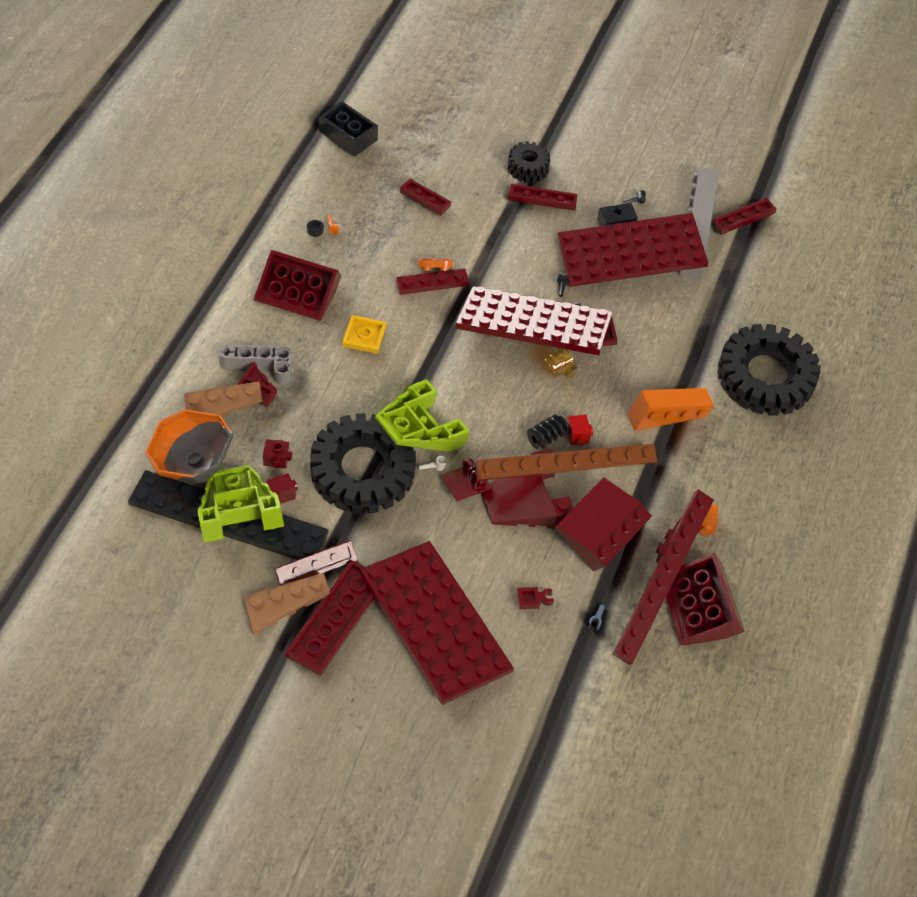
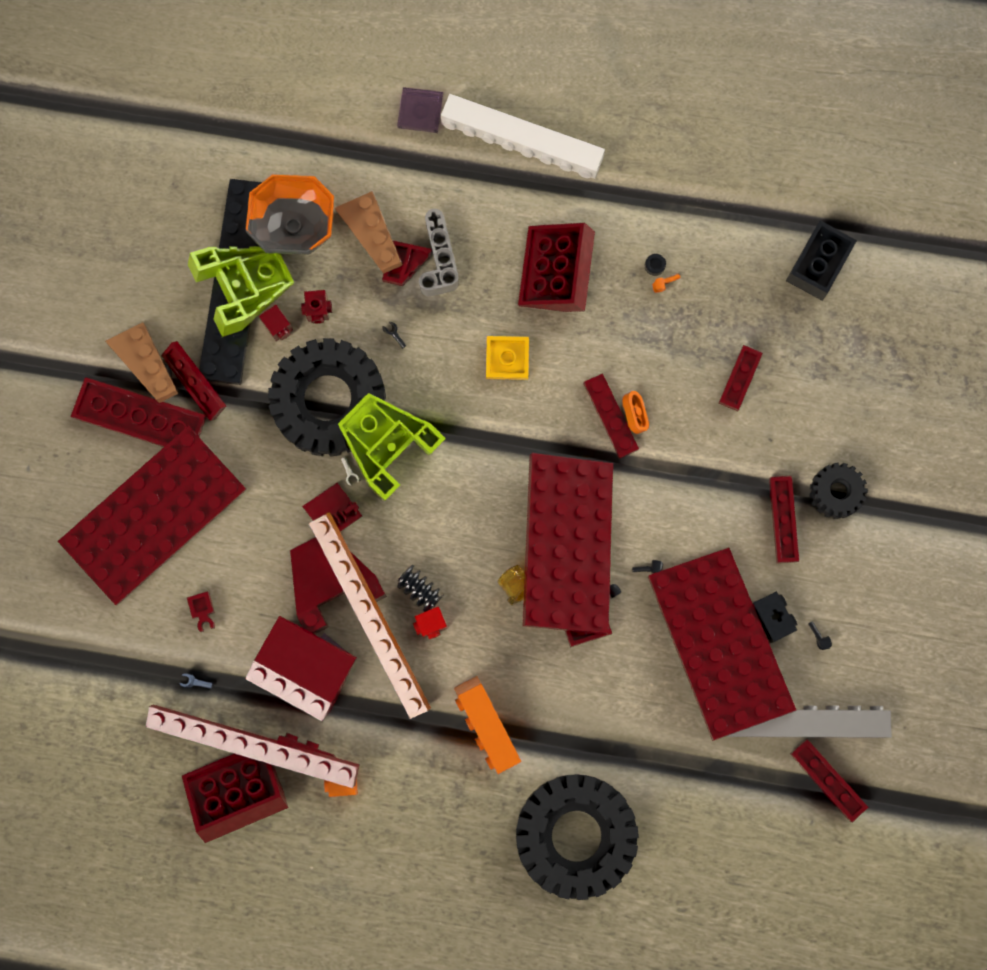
camera: 85 degrees right, 25 degrees up
(119, 349) = (420, 110): none -> clear purple tile
(173, 285) = (522, 136): none -> white brick
(314, 407) = (393, 332): none -> black hand

